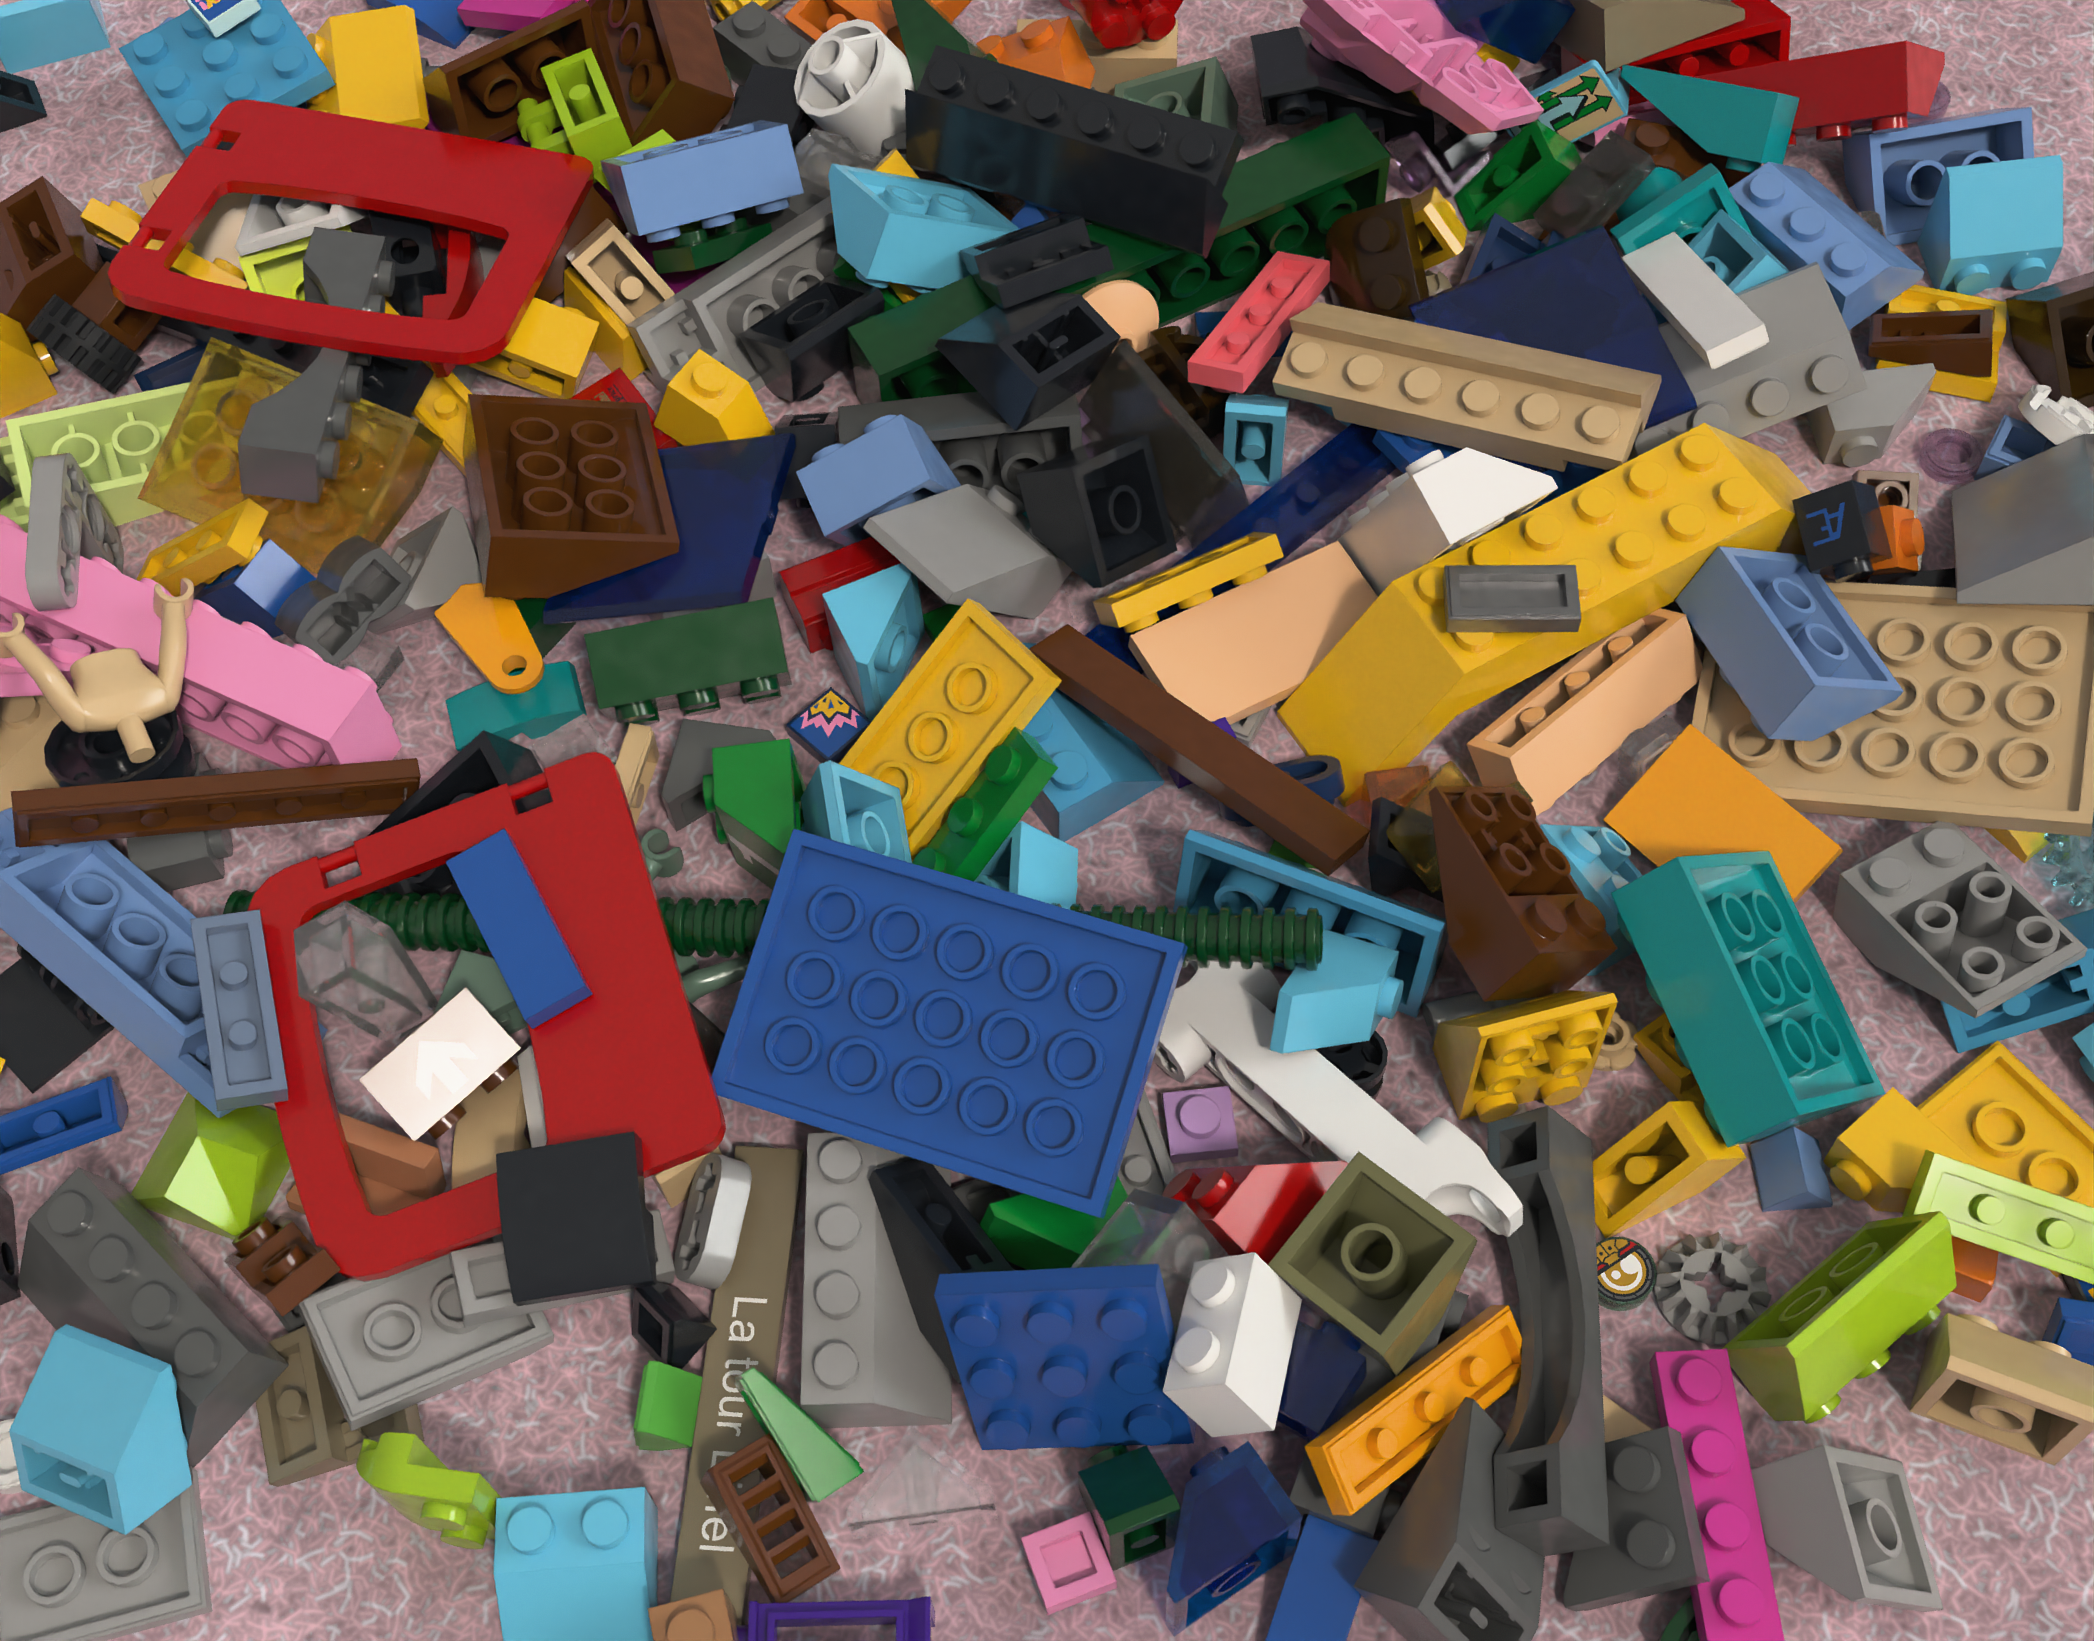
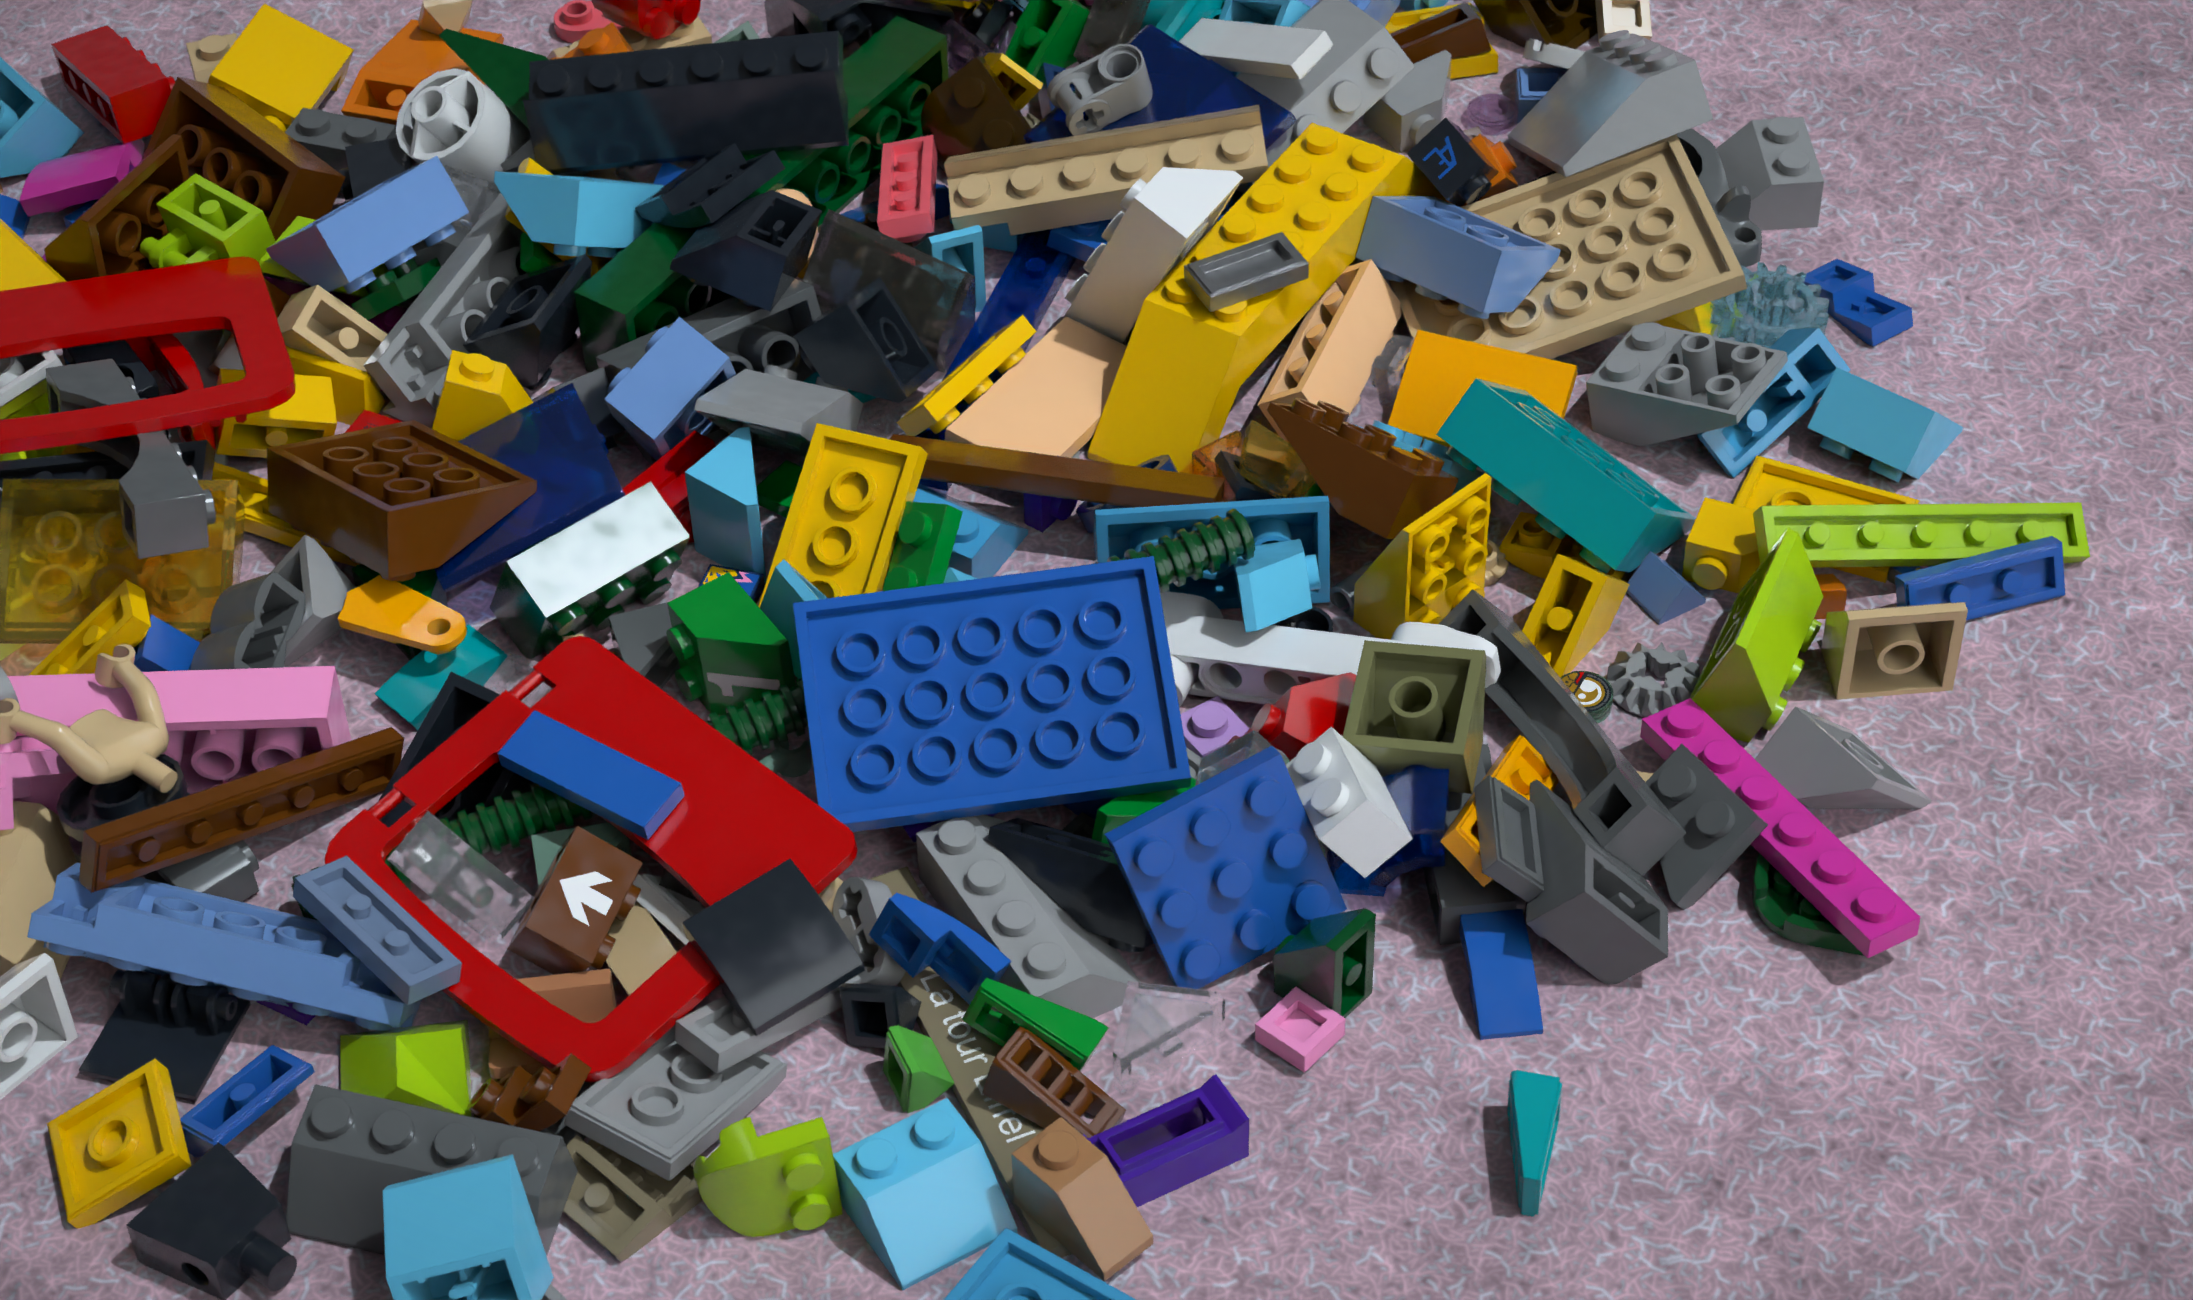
camera: 30 degrees left, 15 degrees down
(731, 1274) = (926, 936): none -> blue slope
(1228, 1533) = (1414, 942): clear blue slope -> none
(1387, 1475) = (1508, 838): none -> dark grey tile
(1502, 292) = (1104, 89): none -> light grey piece

